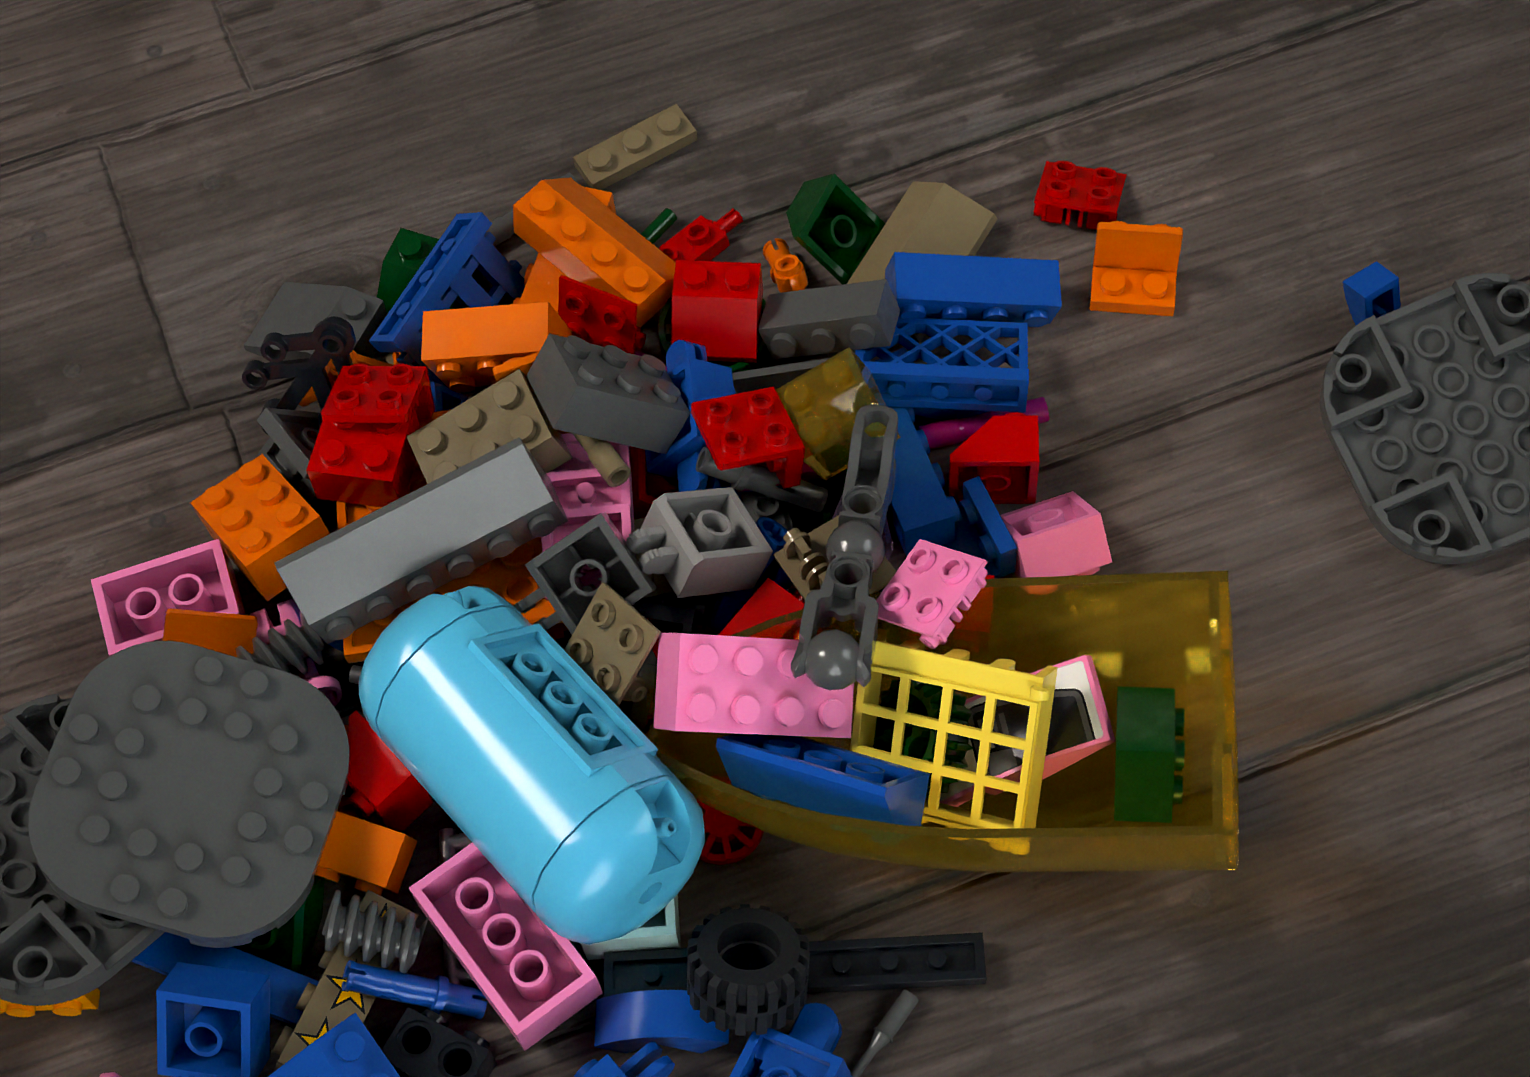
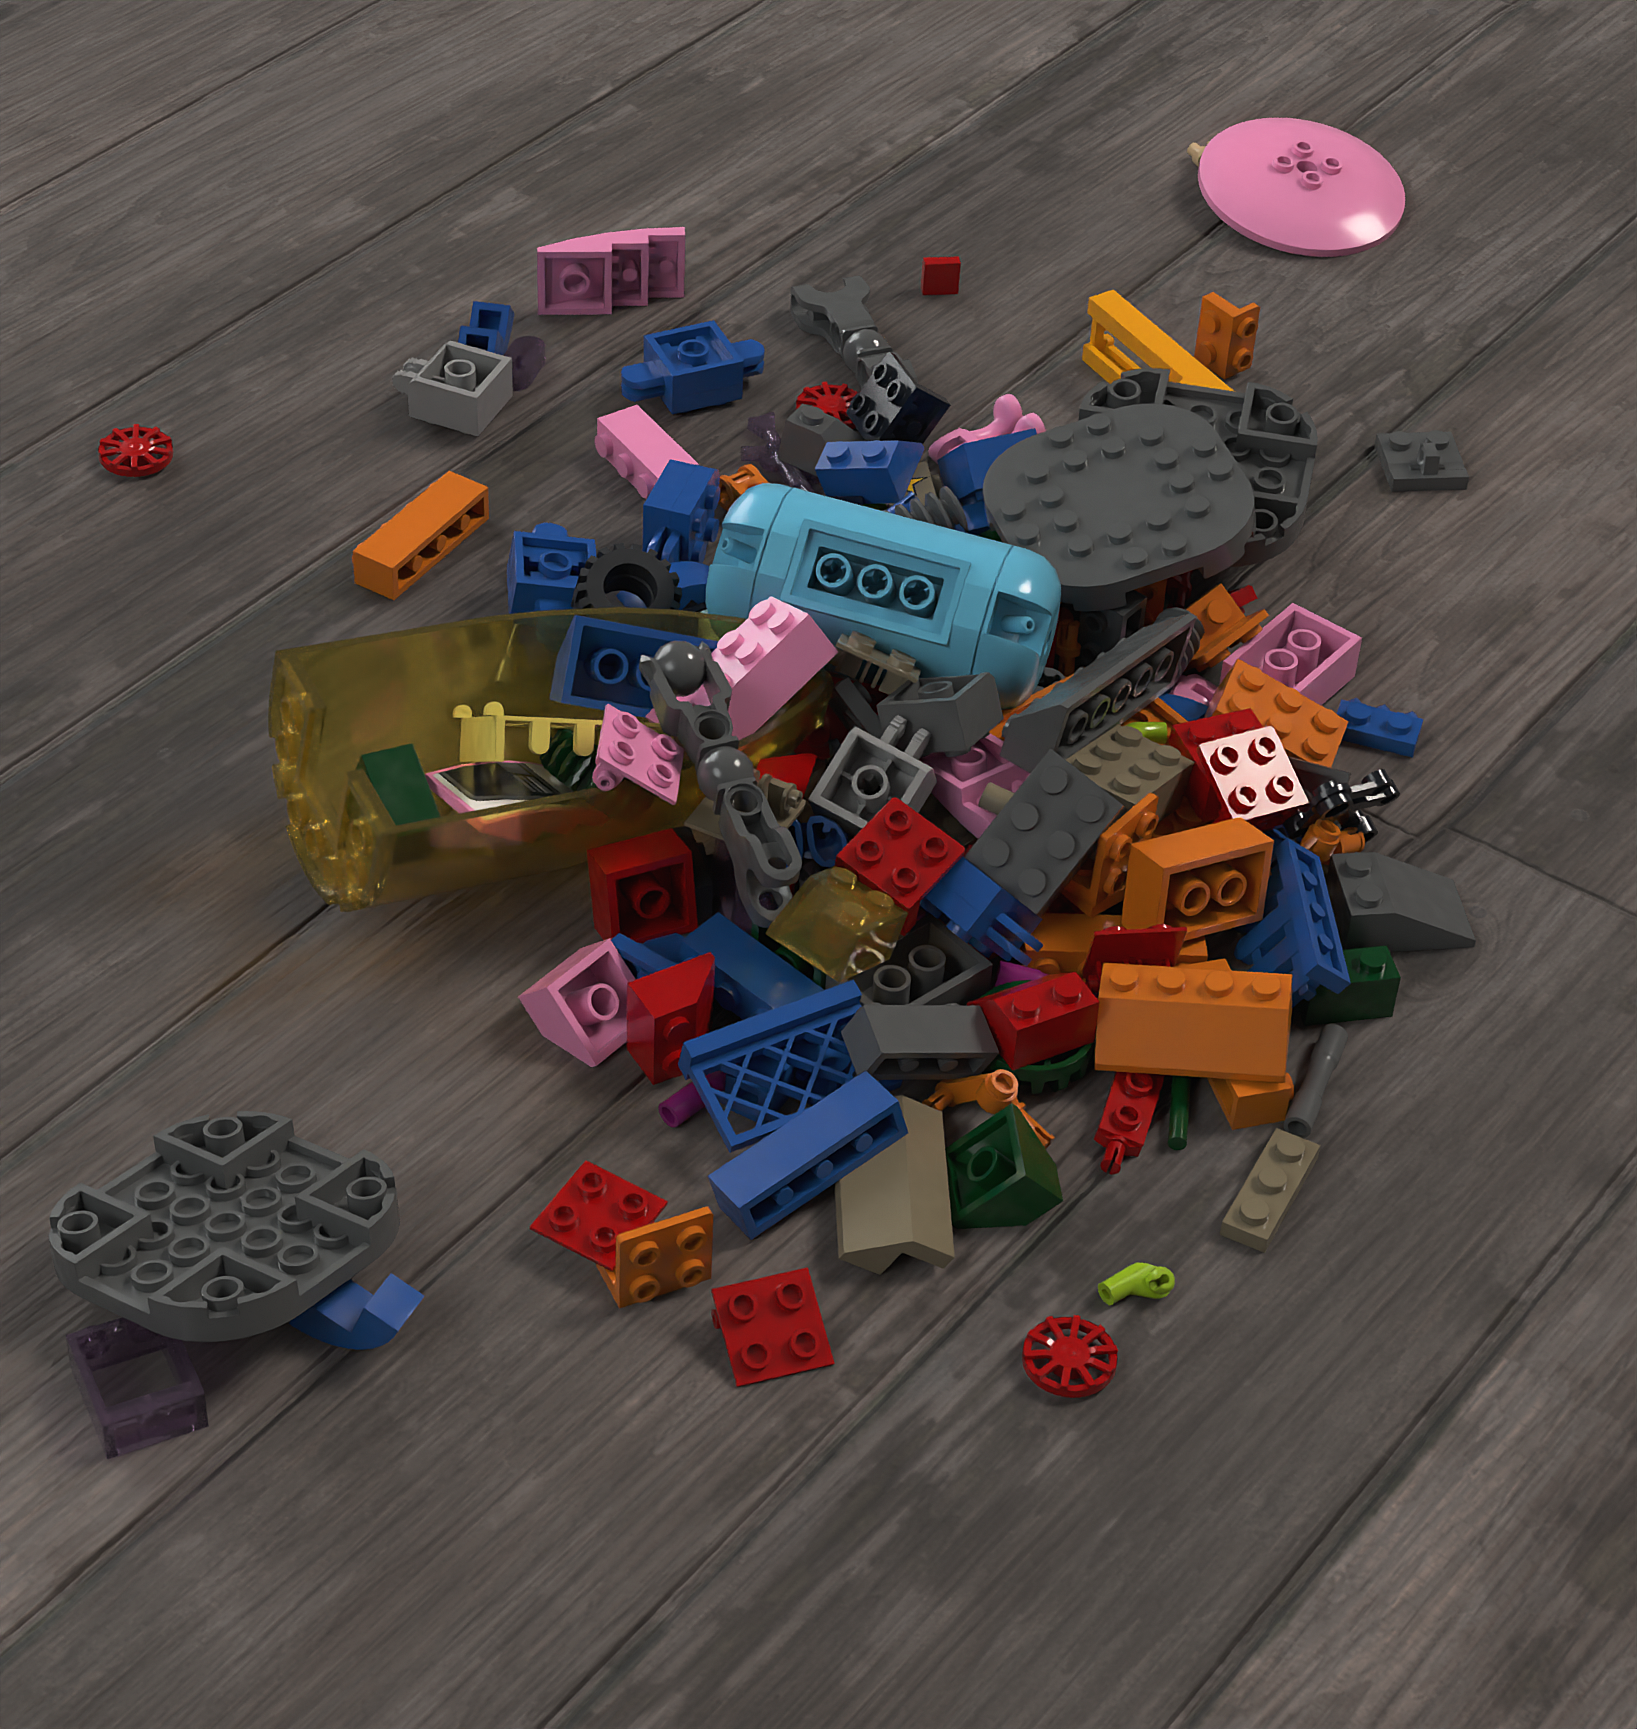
camera: 140 degrees right, 20 degrees down
(140, 529) = (1380, 727): none -> blue plate
(789, 120) = (1137, 1280): none -> lime arm
(881, 88) = (1069, 1356): none -> red wheel
(1160, 324) = (594, 1211): none -> red hinge

